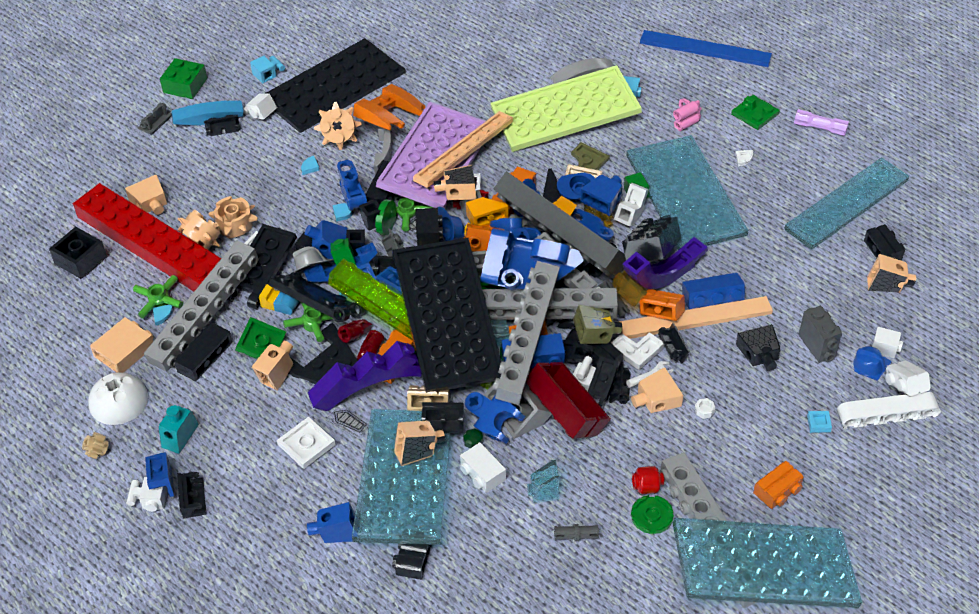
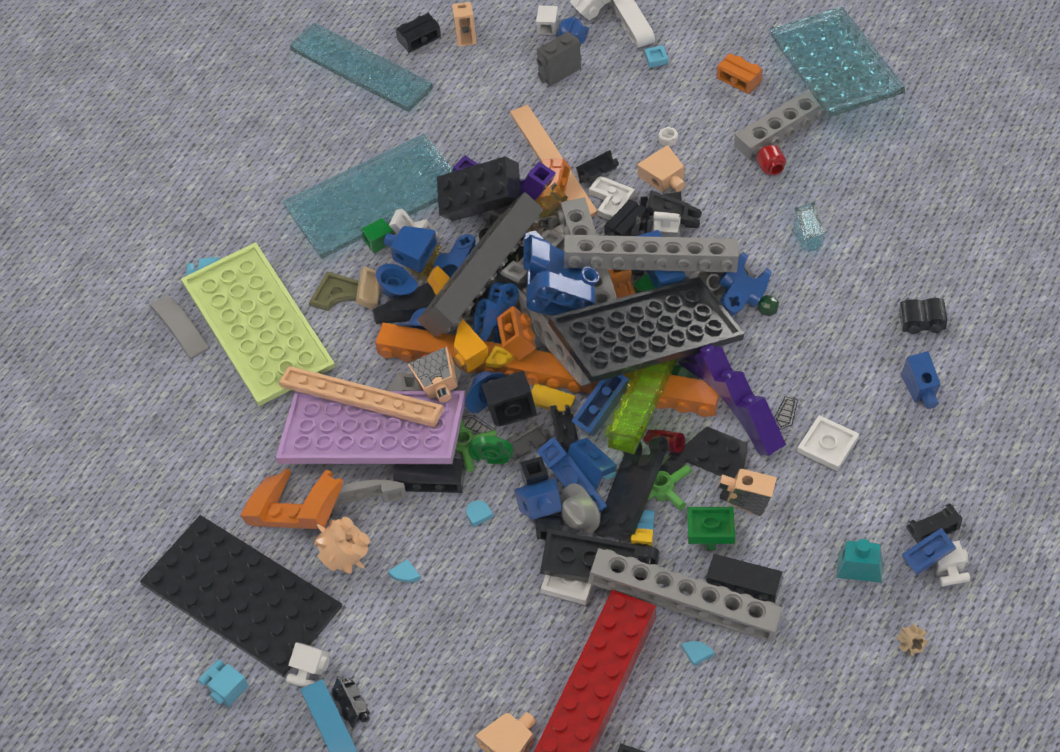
camera: 100 degrees left, 5 degrees up
(117, 398) = (828, 658): white piece -> none
(122, 345) = (763, 669): light nougat brick -> none
(157, 296) = (676, 669): bright green bar -> none
(199, 230) = (567, 639): light nougat brick -> none
(233, 216) = (526, 618): light nougat brick -> none
(342, 249) = (565, 472): green brick -> none
(351, 186) = (450, 499): blue piece -> none
(369, 212) = (484, 470): black brick -> none
(371, 343) = (683, 421): dark red hinge -> none
(399, 500) = (841, 339): clear light blue plate -> none
(416, 441) = (812, 325): torso -> none
(417, 395) = (743, 352): tan brick -> none
(444, 416) = (765, 321): black hinge -> none
(482, 467) = (804, 285): white brick -> none
(567, 400) = (715, 217): dark red piece -> none
(576, 532) = (846, 203): dark grey pin -> none
(595, 325) = (611, 216): olive torso -> none
(635, 381) = (632, 178): white piece -> none
(651, 520) = (802, 162): green tile -> none
(687, 114) = (248, 207): bright pink piece -> none
(706, 48) = (116, 218): blue tile -> none
(713, 290) = (518, 145): blue brick -> none
(743, 157) = (304, 158): white tile -> none
(755, 112) = (227, 157): green hinge -> none
(760, 346) = (580, 104): torso -> none
(808, 119) = (235, 109): lavender axle -> none

